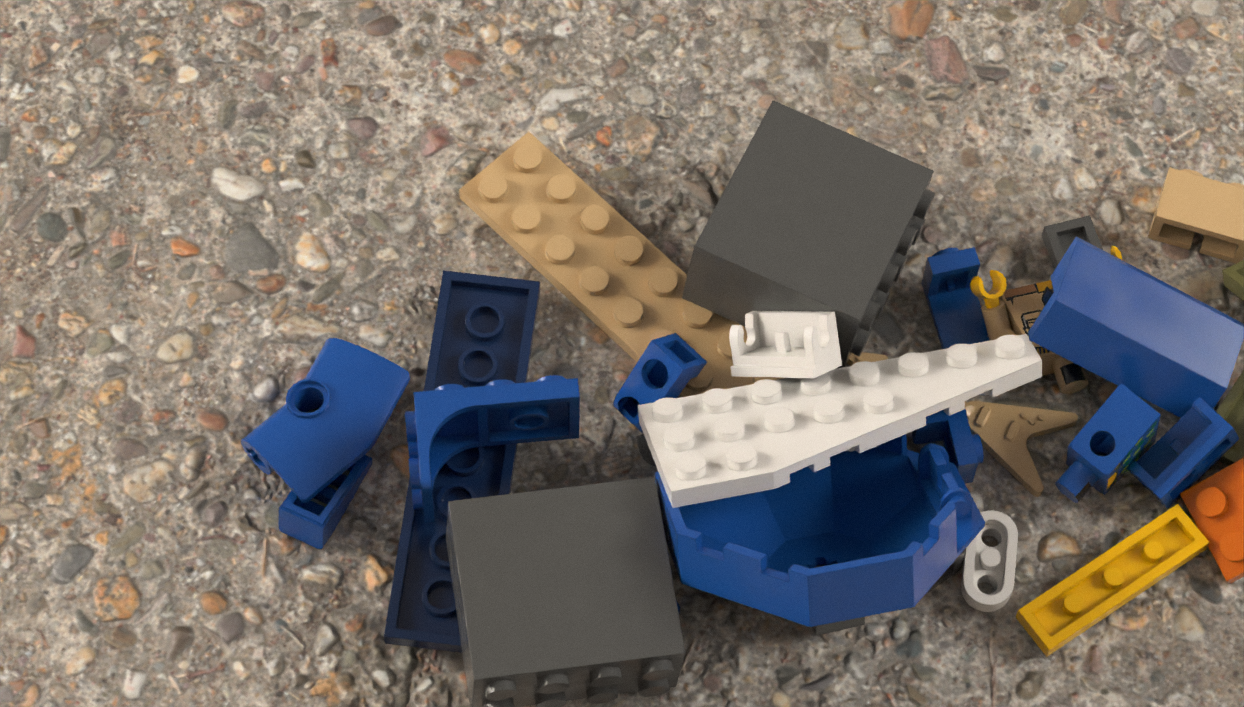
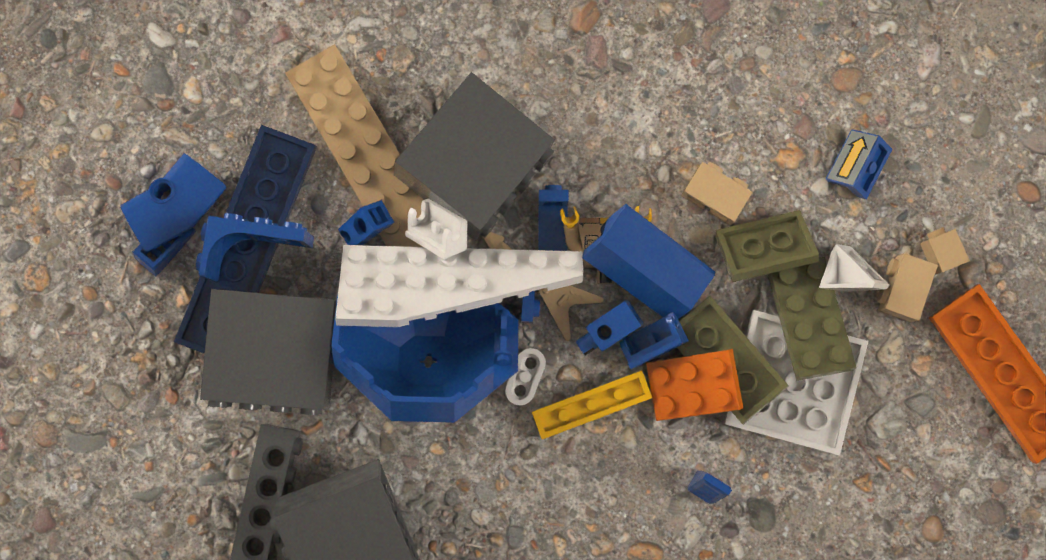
camera: 15 degrees right, 20 degrees up
(1061, 235) = (633, 193): dark grey plate -> none

